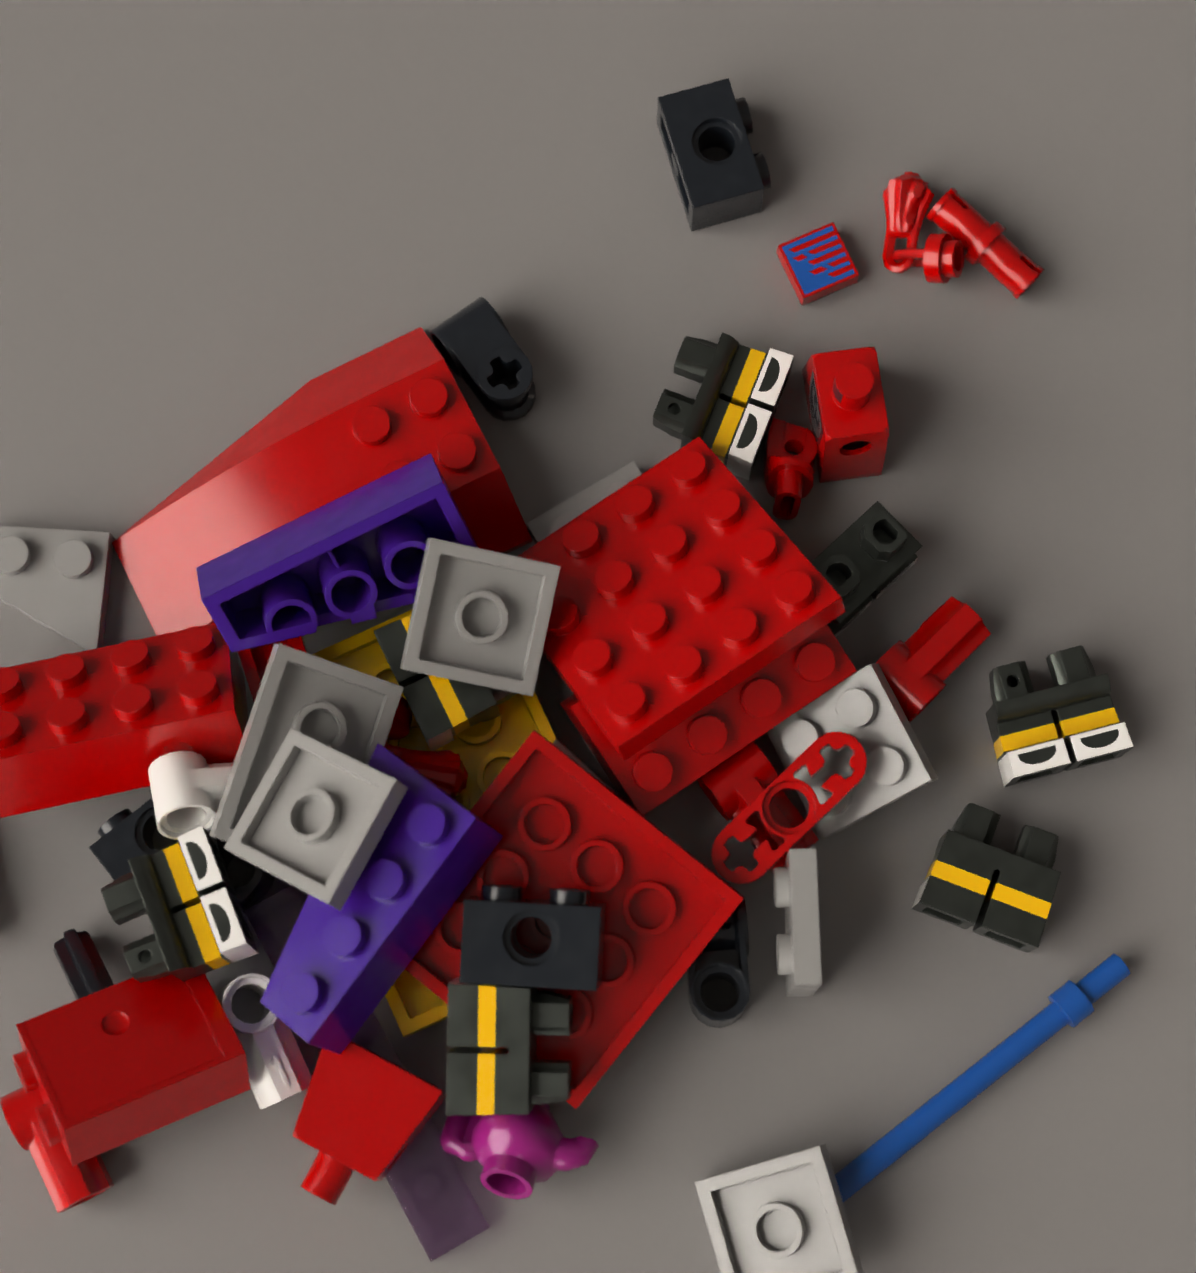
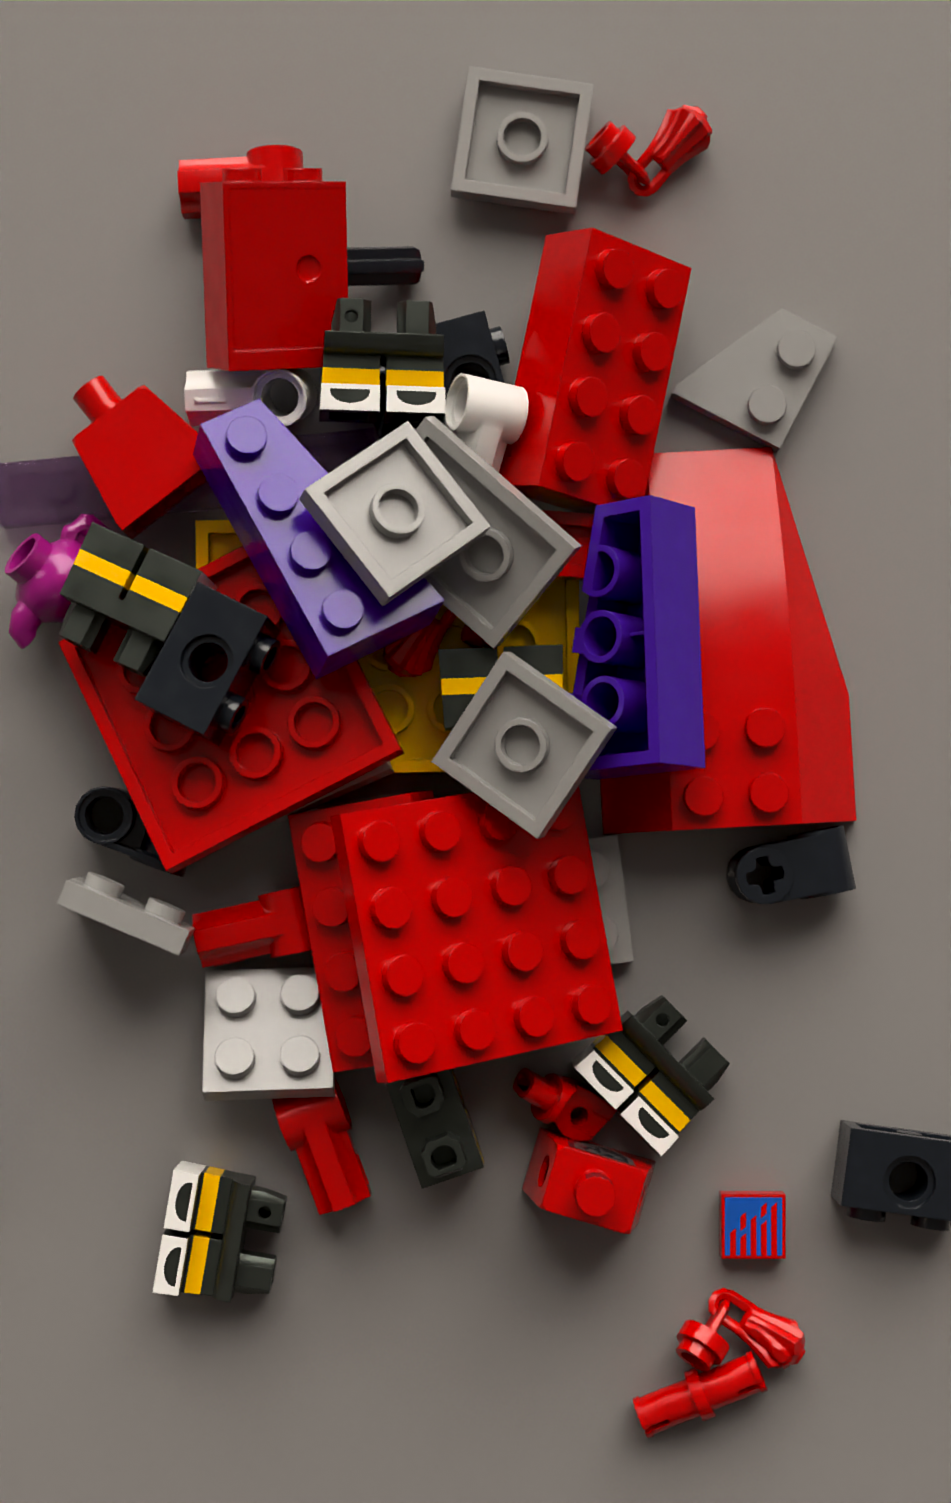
camera: 110 degrees right, 10 degrees up
(814, 762) = (203, 911): red beam -> none
(1020, 885) = (90, 1099): pearl dark grey hips -> none

